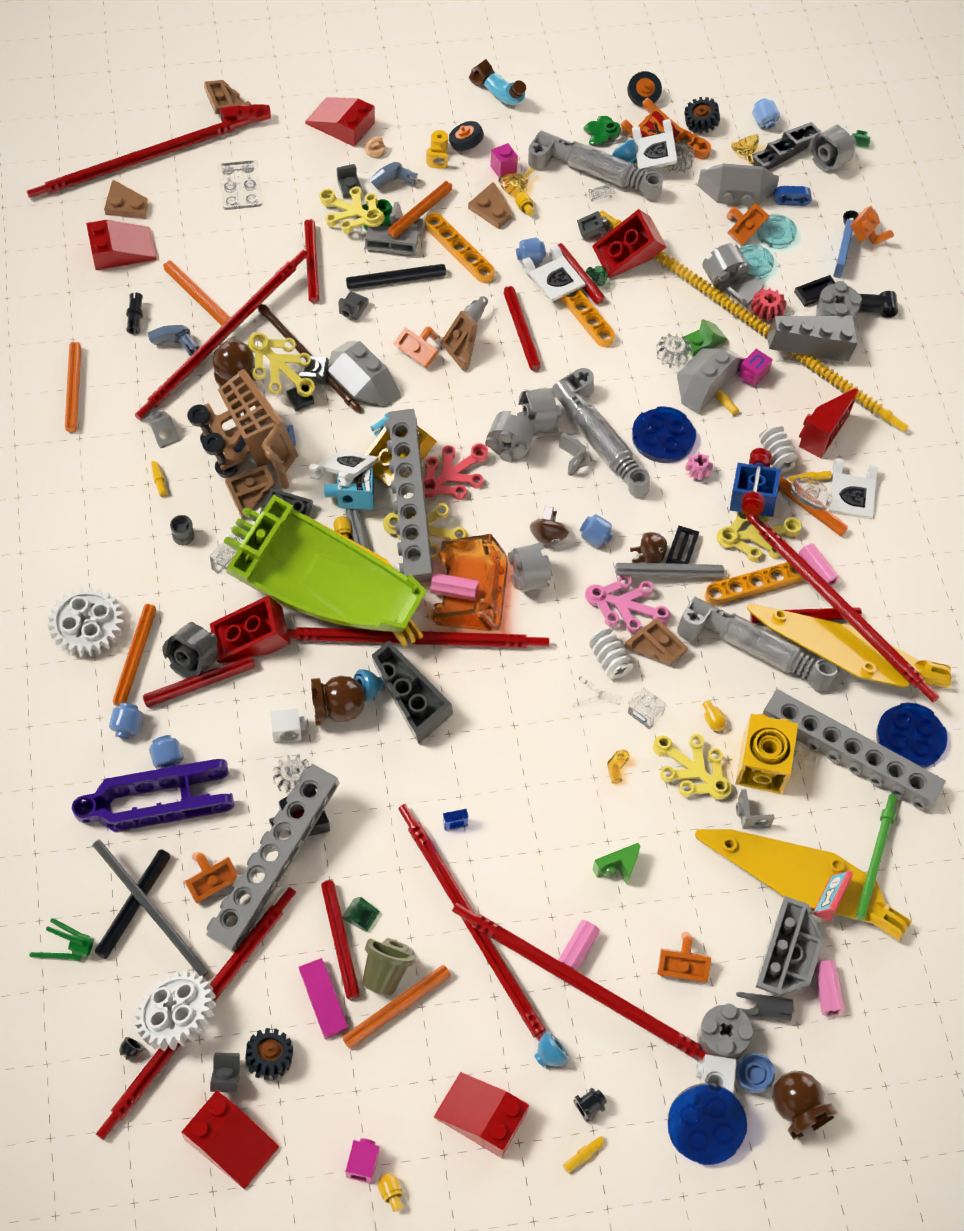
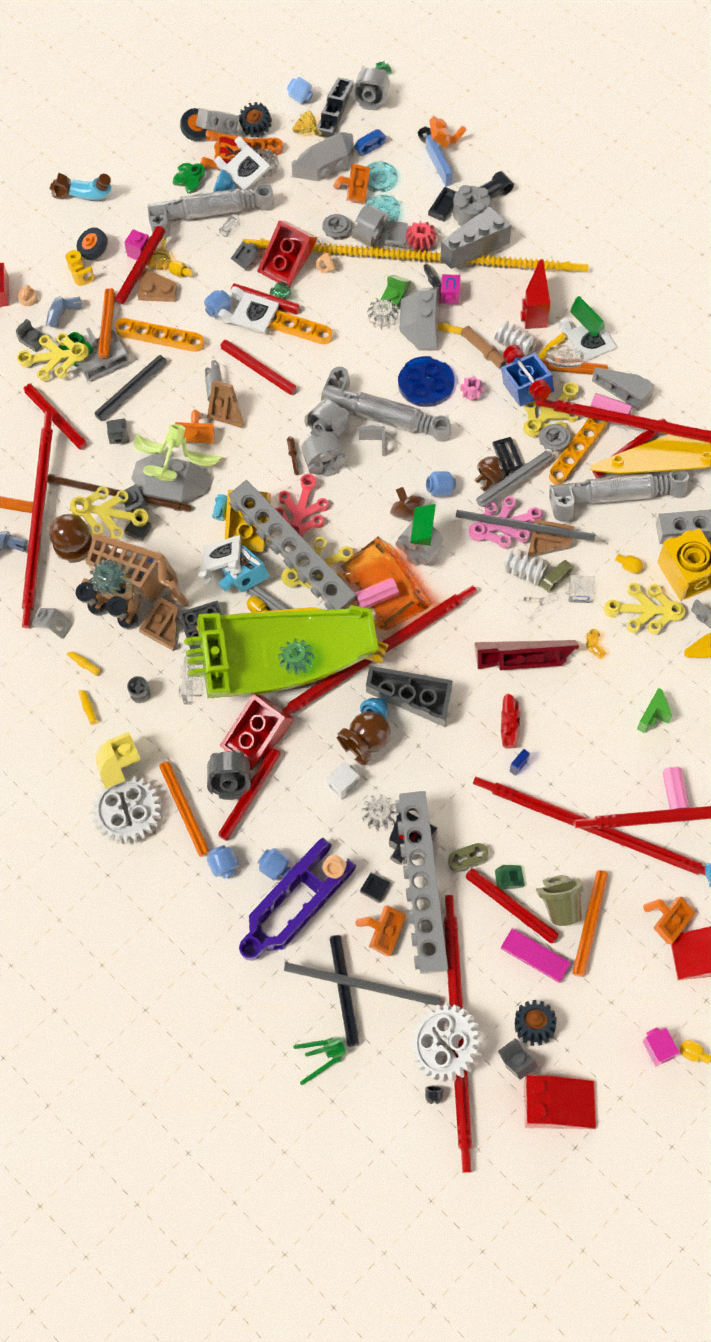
camera: 30 degrees left, 5 degrees up
(111, 569) = (114, 756): none -> light yellow brick
(130, 517) = (87, 707): none -> yellow piece
(209, 788) = (334, 866): none -> light nougat tile
(221, 411) = (112, 581): none -> clear light blue gear
(235, 836) = (374, 887): none -> black tile
(330, 588) = (294, 650): none -> clear light blue gear
(339, 864) = (469, 862): none -> olive beam
(387, 338) = (175, 438): none -> yellowish green plant
(473, 1057) = (673, 918): none -> orange plate
(478, 778) = (510, 722): none -> red hinge
(488, 419) = (293, 452): none -> reddish brown piece
(491, 178) = (140, 265): none -> red axle
(538, 550) = (423, 525): none -> green slope
(543, 729) = (523, 654): none -> dark red wedge
(633, 681) = (556, 576): none -> olive beam
(641, 617) = (525, 525): none -> dark grey piece
(662, 275) = (328, 262): none -> light nougat tile
(664, 95) = (217, 120): none -> light grey brick
(699, 244) = (331, 222): none -> light grey gear
(743, 552) = (553, 431): none -> light grey gear
(744, 445) = (489, 352): none -> medium nougat pin
(747, 348) = (433, 280): none -> black piece
(850, 558) = (625, 386): none -> light grey slope
(863, 470) = (587, 316): none -> green slope

